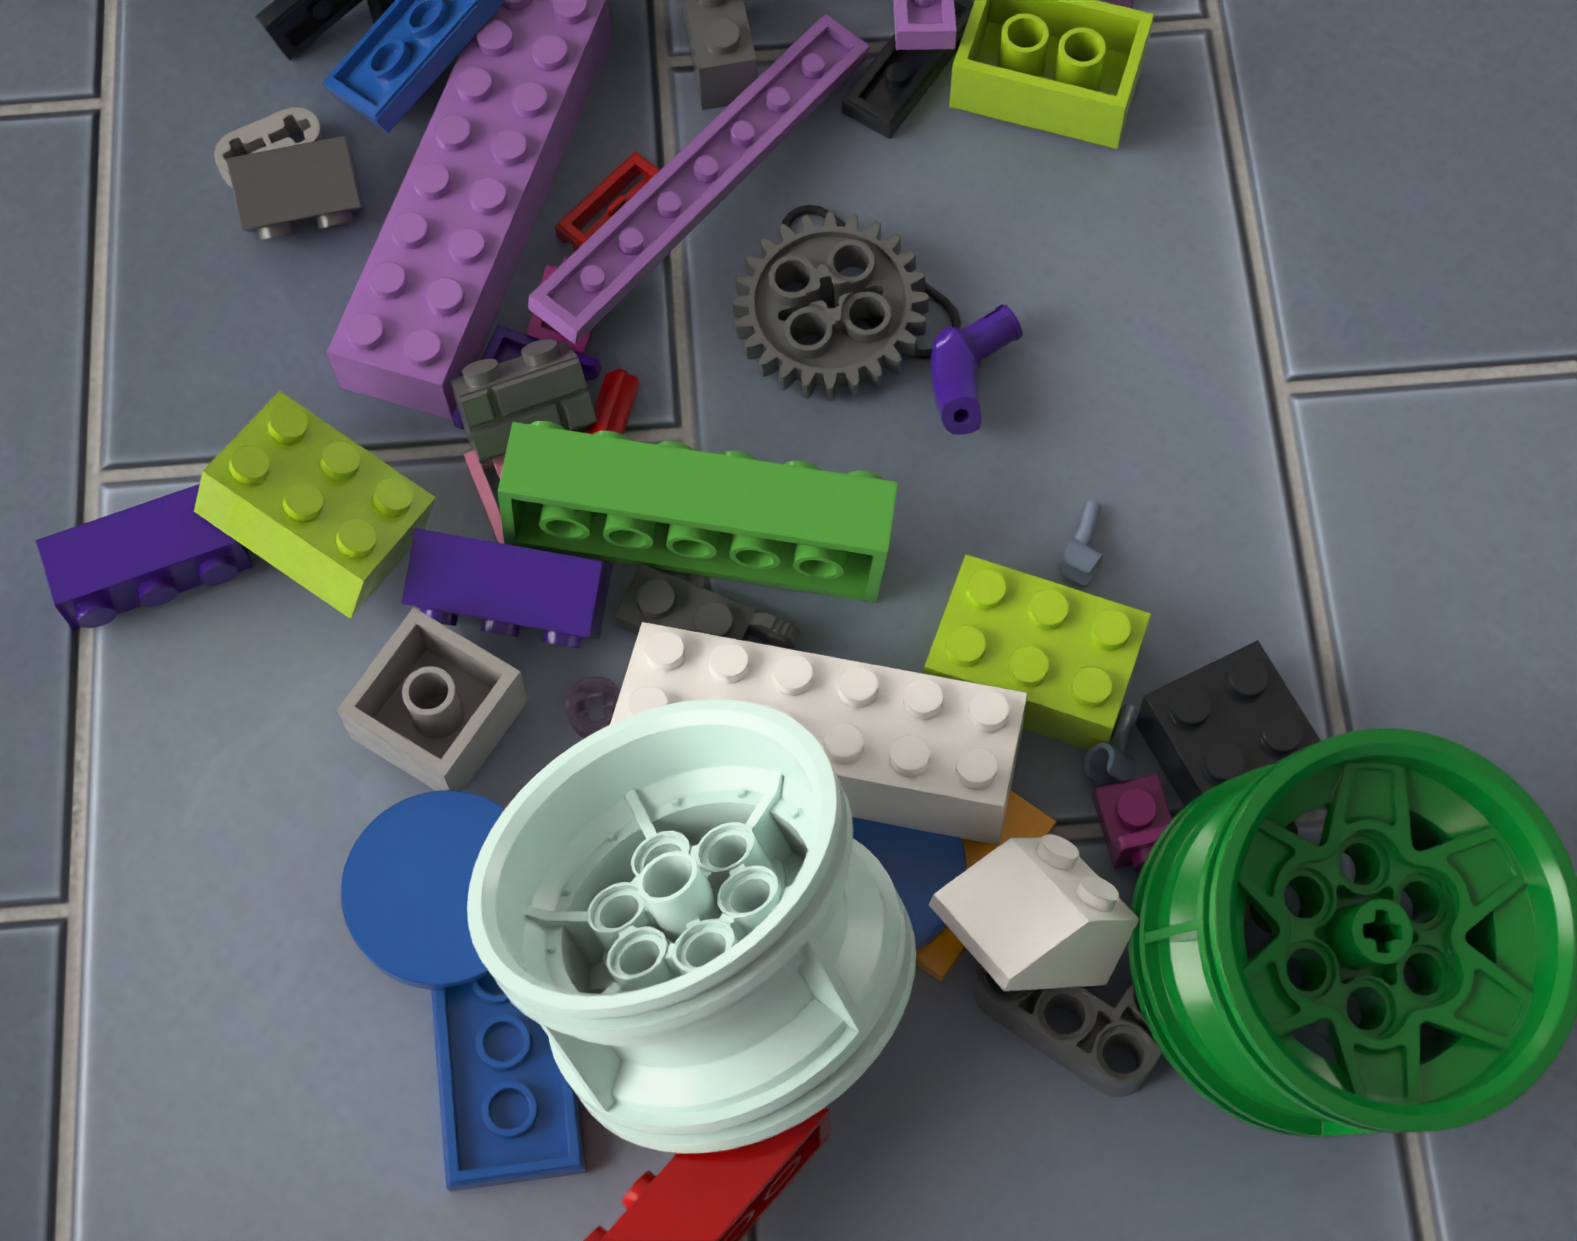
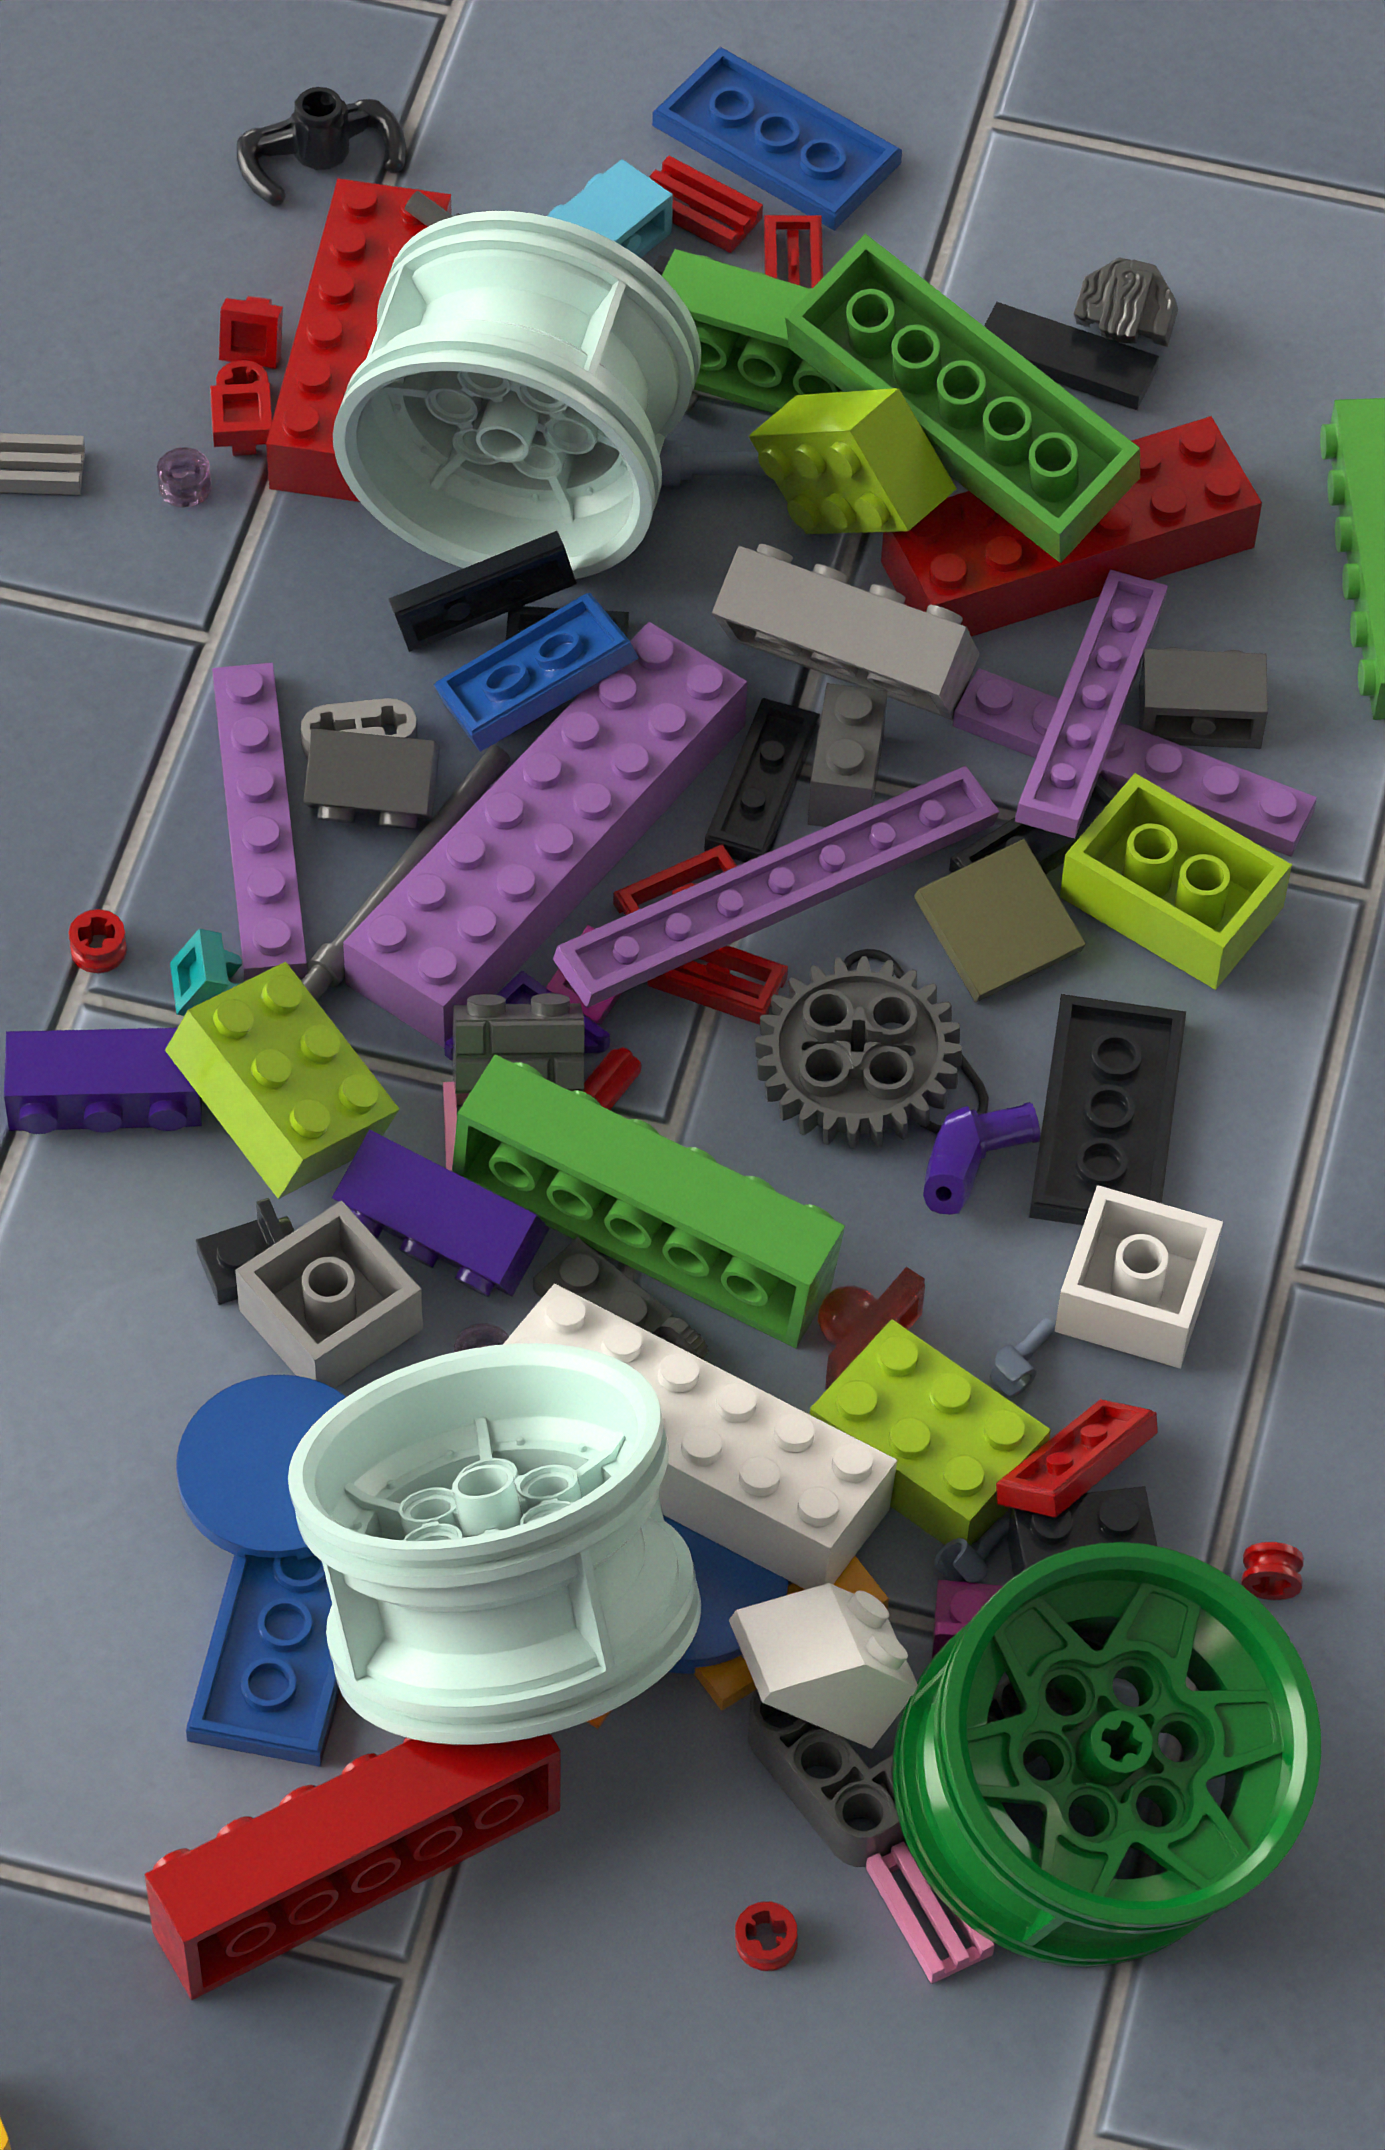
camera: 15 degrees right, 10 degrees down
(78, 417) = (113, 947): none -> red bush
(203, 421) = (202, 970): none -> teal tile
(208, 261) = (259, 819): none -> medium lavender plate
(317, 373) = (327, 964): none -> dark grey bar
(332, 677) = (234, 1247): none -> black bracket
(648, 82) = (762, 780): none -> black tile
(686, 286) = (718, 989): none -> red tile
(908, 144) = (999, 920): none -> olive tile
(931, 565) = (853, 1317): none -> clear red tile
(1070, 293) = (1106, 1105): none -> black tile
(1076, 1180) = (781, 1921): none -> red bush
(1166, 437) = (1138, 1276): none -> white brick
(1181, 633) = (1077, 1458): none -> red tile
(1195, 1139) = (935, 1969): none -> bright pink tile
(1389, 677) = (1272, 1570): none -> red bush

